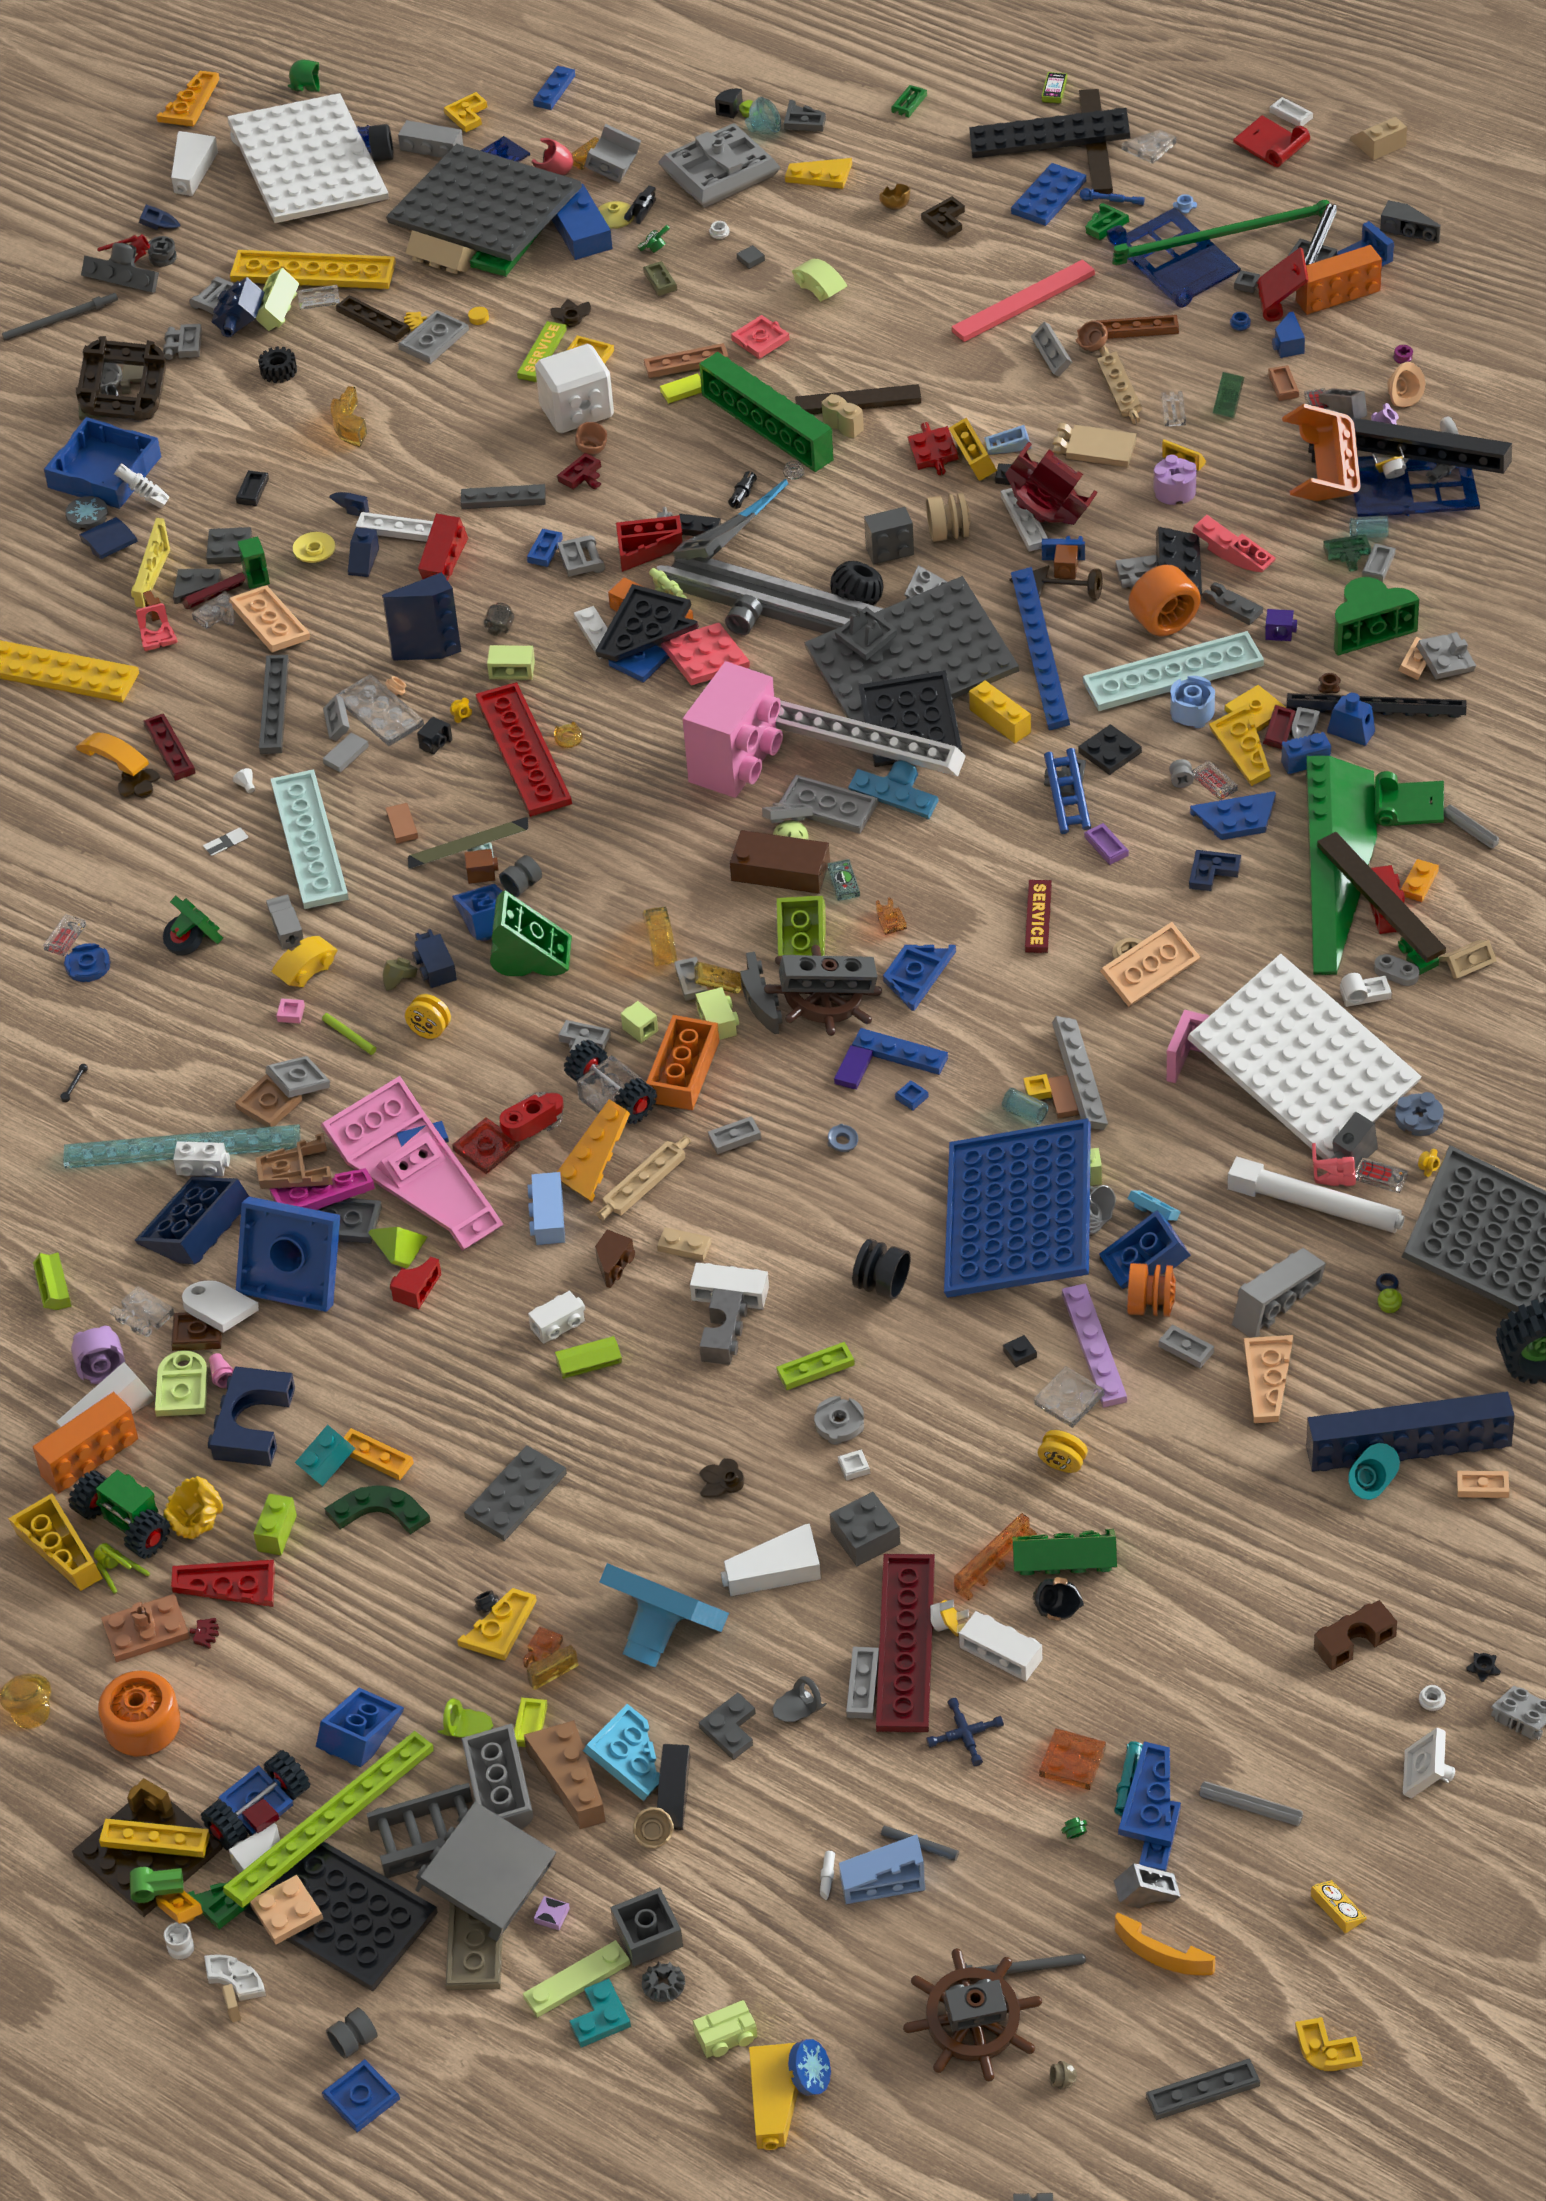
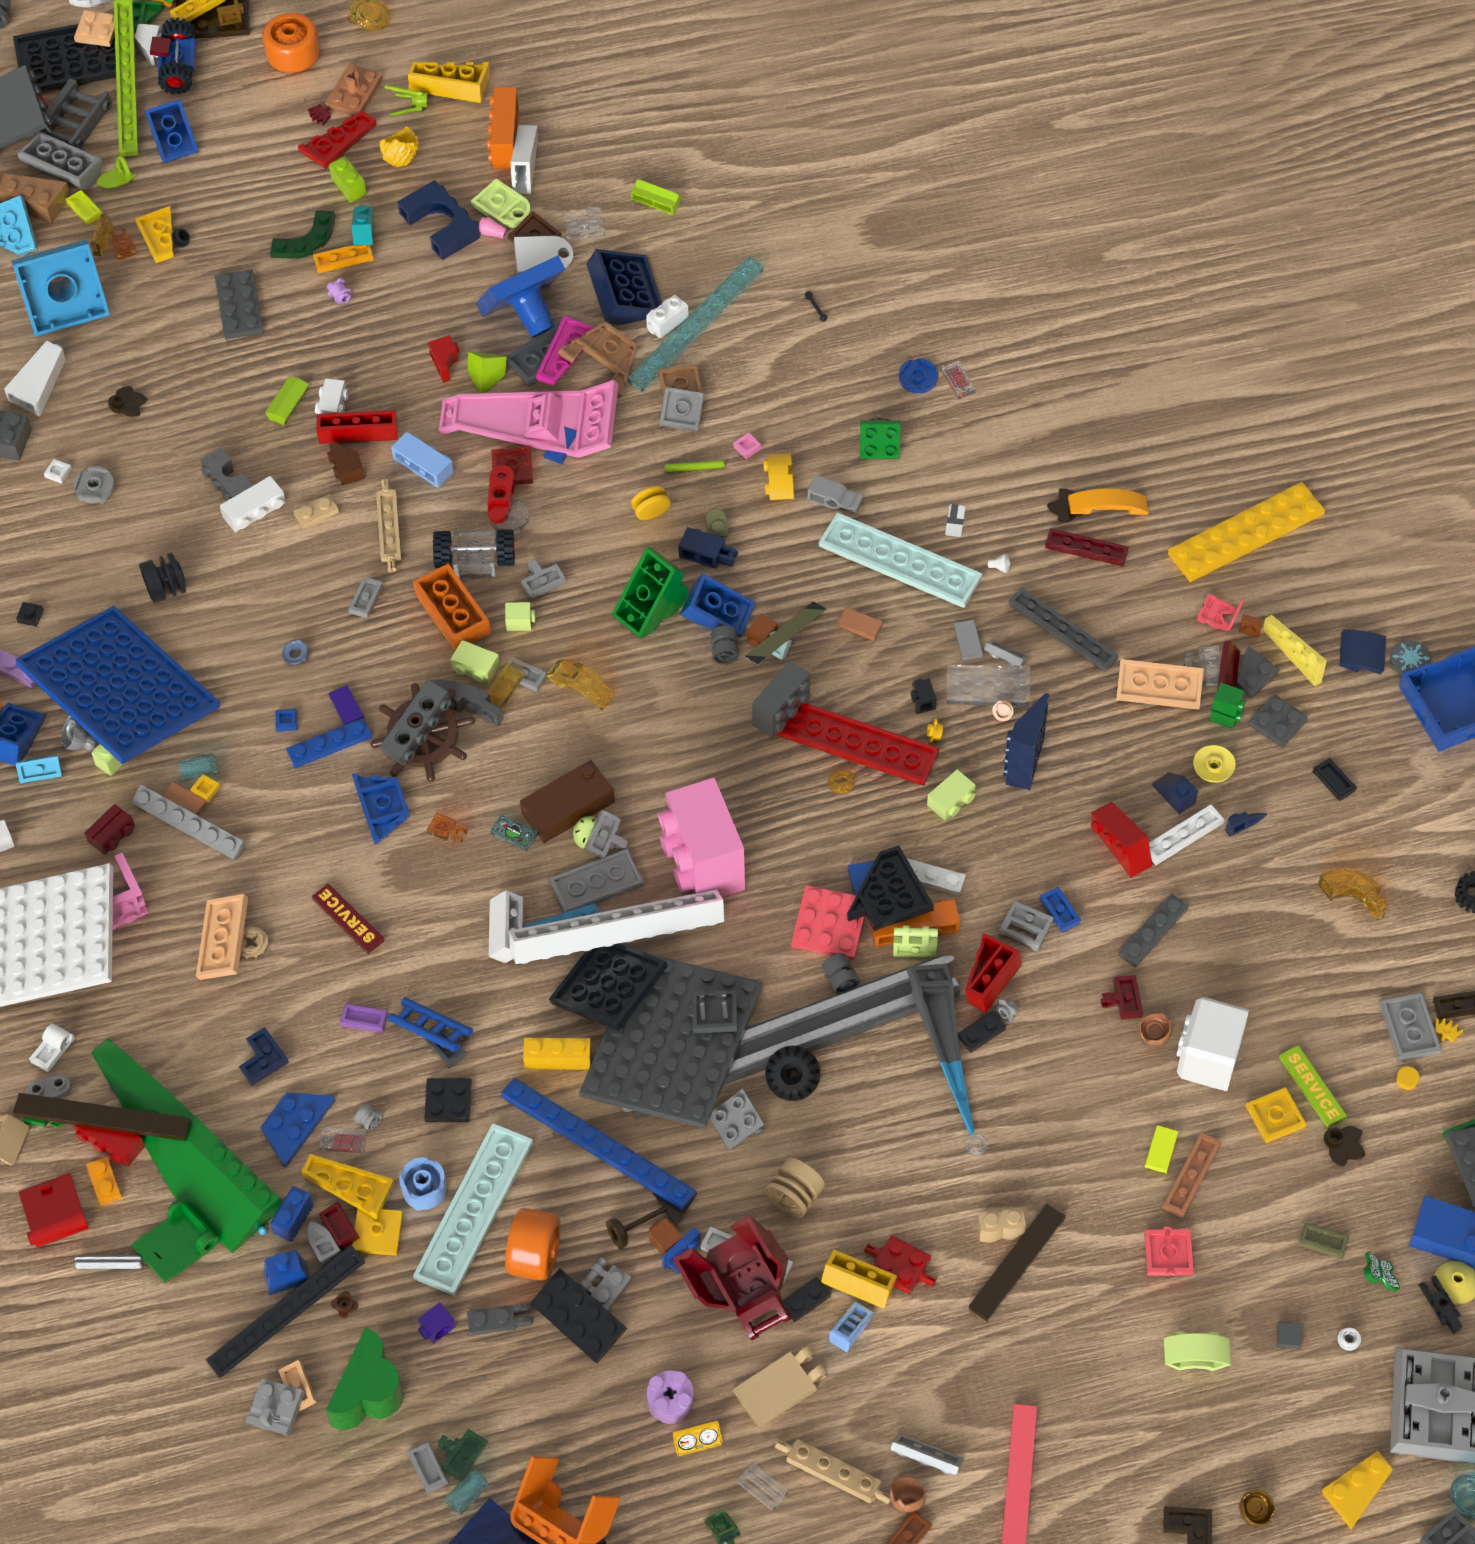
camera: 130 degrees right, 10 degrees up
(96, 1353) = (565, 172): lavender brick -> none
(124, 1506) = (435, 116): brick -> none
(141, 485) = (1395, 697): white hinge -> none
(420, 1420) = (339, 291): none -> lavender brick
(498, 619) = (1006, 820): clear smoke head -> none
(542, 786) = (781, 699): none -> dark grey brick
(565, 1272) = (357, 427): none -> red brick
(586, 1162) = (432, 505): light orange wing -> none
(742, 489) = (990, 1091): black pin -> none
(766, 411) = (1056, 1166): green brick -> none
(800, 925) = (493, 766): lime slope -> none
(815, 1366) = (144, 502): lime plate -> none
(889, 535) = (816, 1130): dark grey piece -> none
(934, 811) = (504, 916): none -> white brick
(1148, 1112) = (110, 829): none -> dark red brick
(1236, 550) = (552, 1372): coral slope -> none
(1478, 884) = (52, 1211): none -> red door

